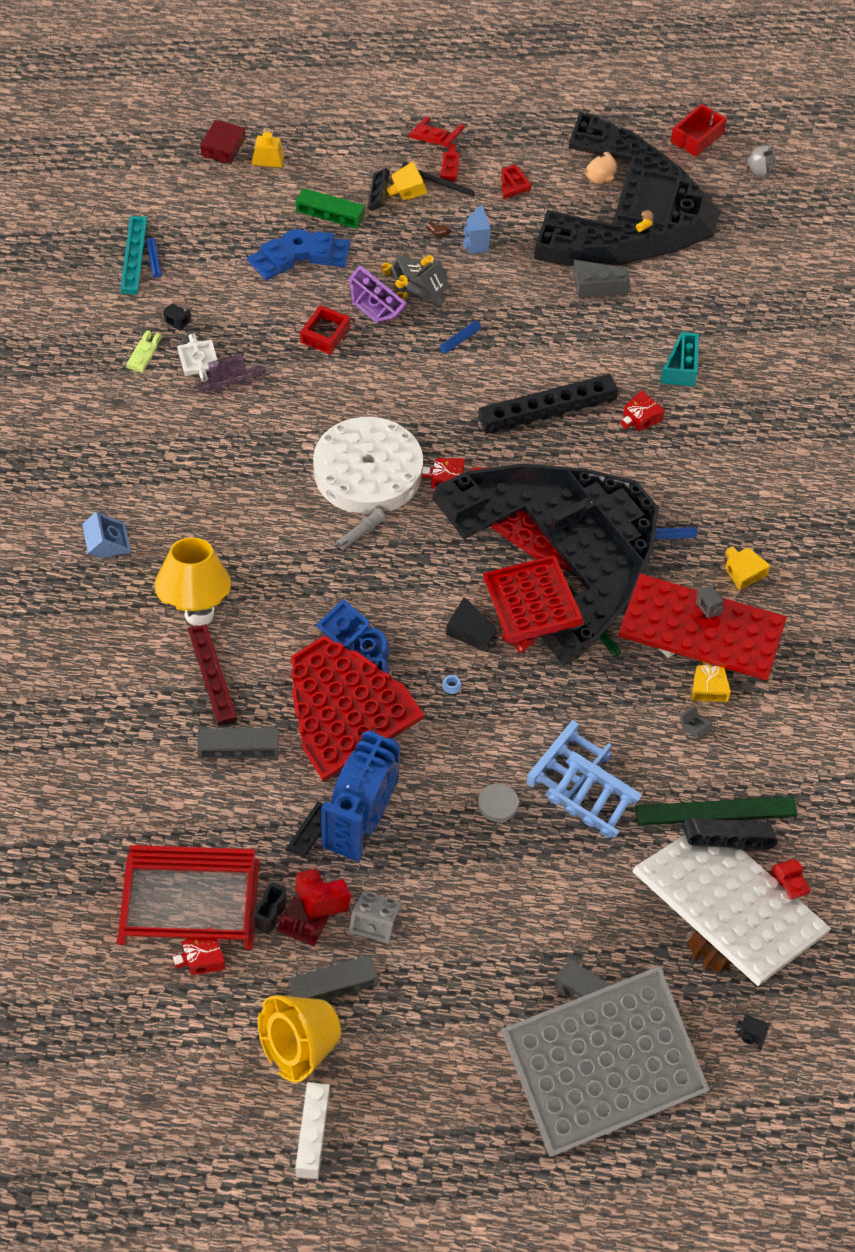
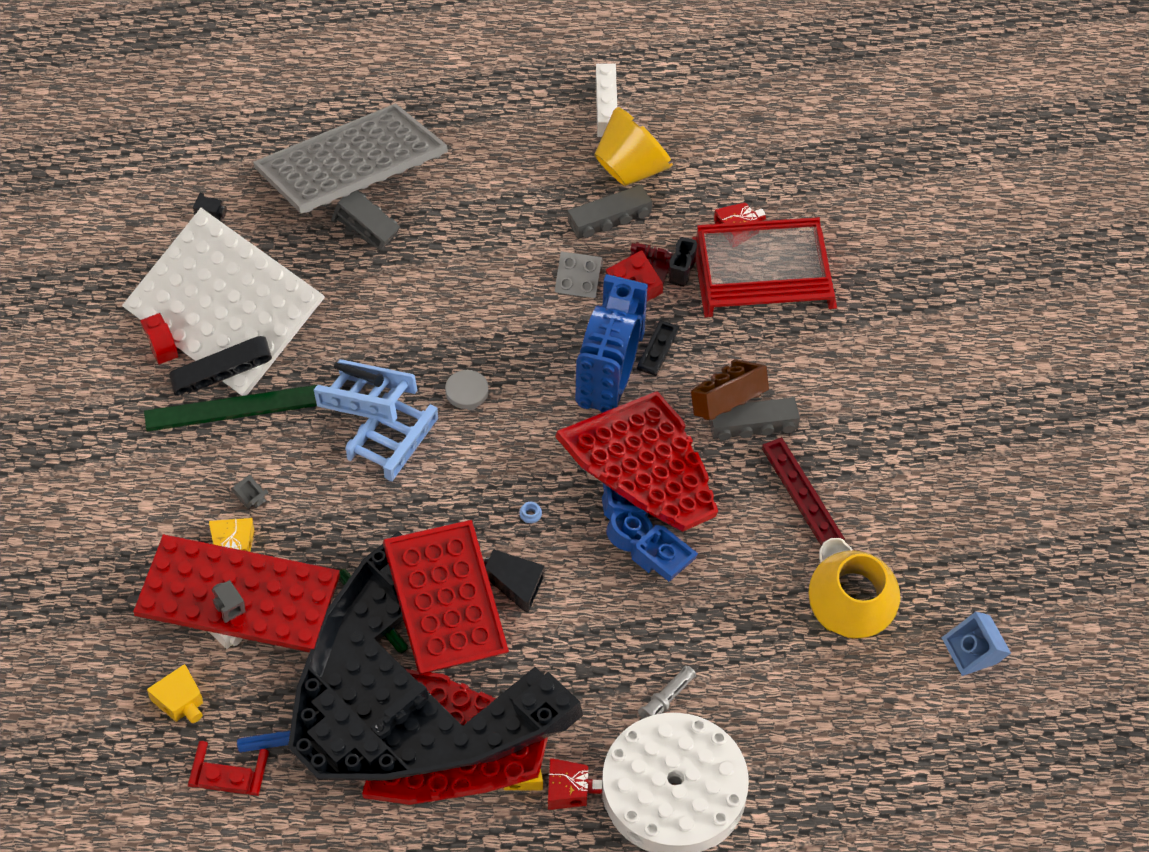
camera: 175 degrees right, 0 degrees up
(256, 751) = (729, 389): none -> reddish brown wedge
(599, 808) = (376, 379): none -> black piece
(704, 511) = (227, 777): none -> red plate

